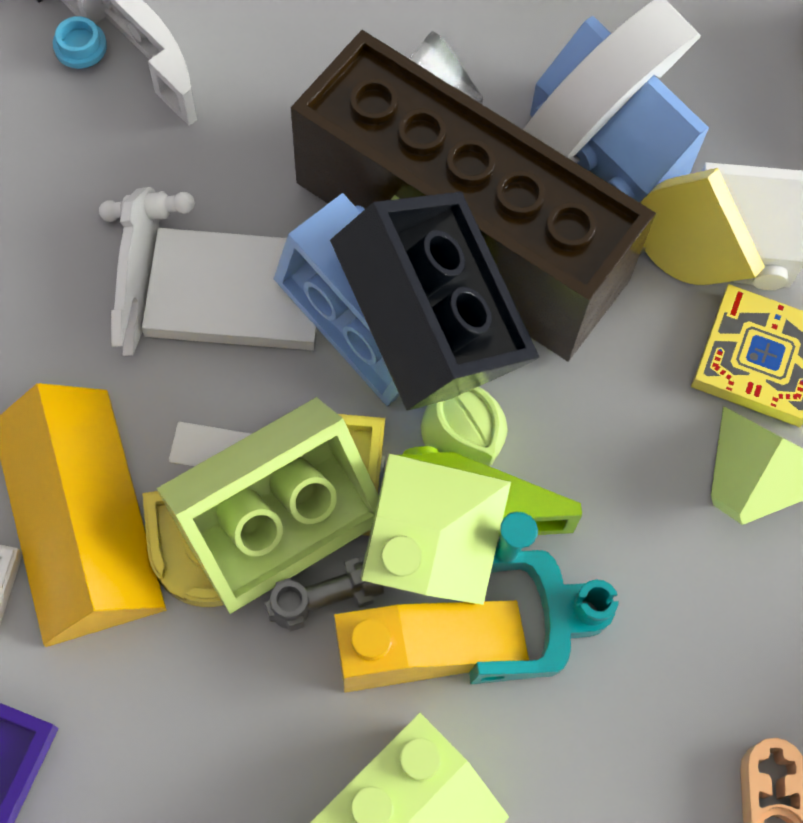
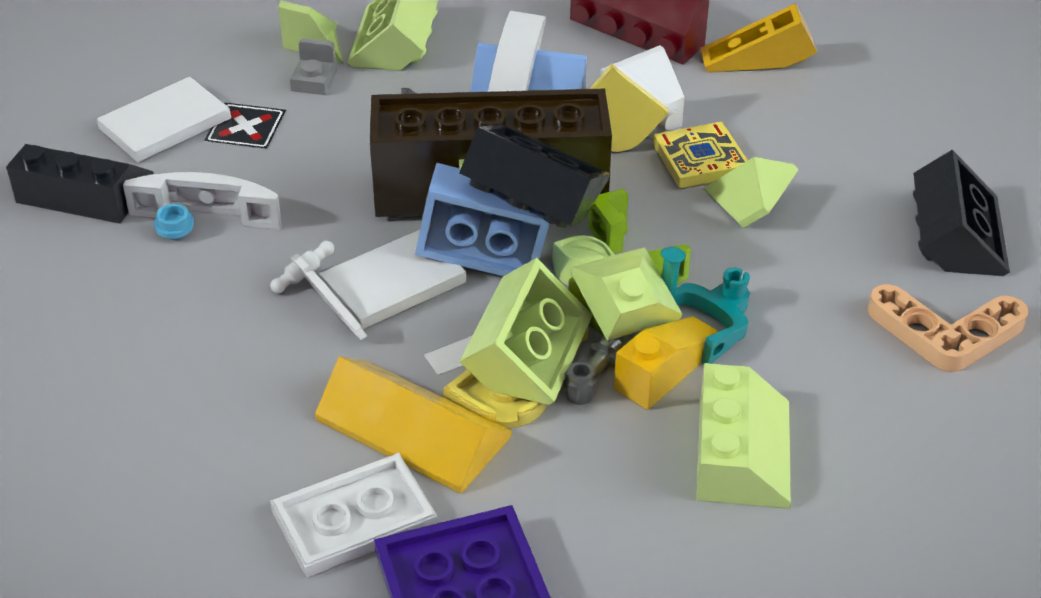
camera: 35 degrees left, 25 degrees down
(553, 369) = (609, 218): none -> lime bracket

